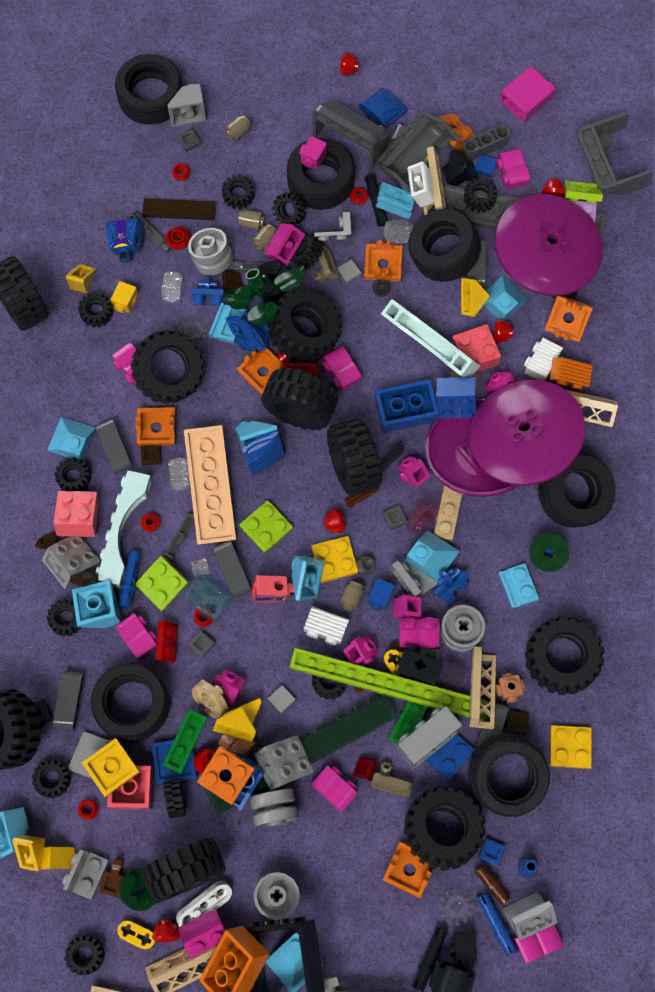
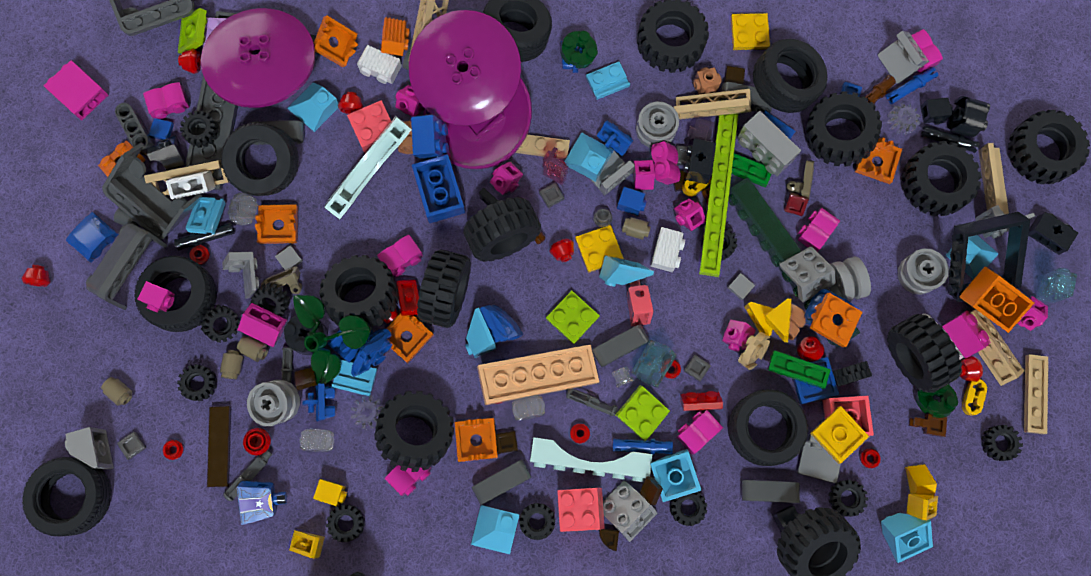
camera: 100 degrees left, 5 degrees up
(85, 874) = (931, 450): light grey bracket -> none
(381, 292) = (308, 229): clear smoke plate -> none
(410, 935) = (957, 163): none -> black tyre
(472, 297) = (316, 132): yellow slope -> none
(523, 870) = (861, 60): blue cone -> none

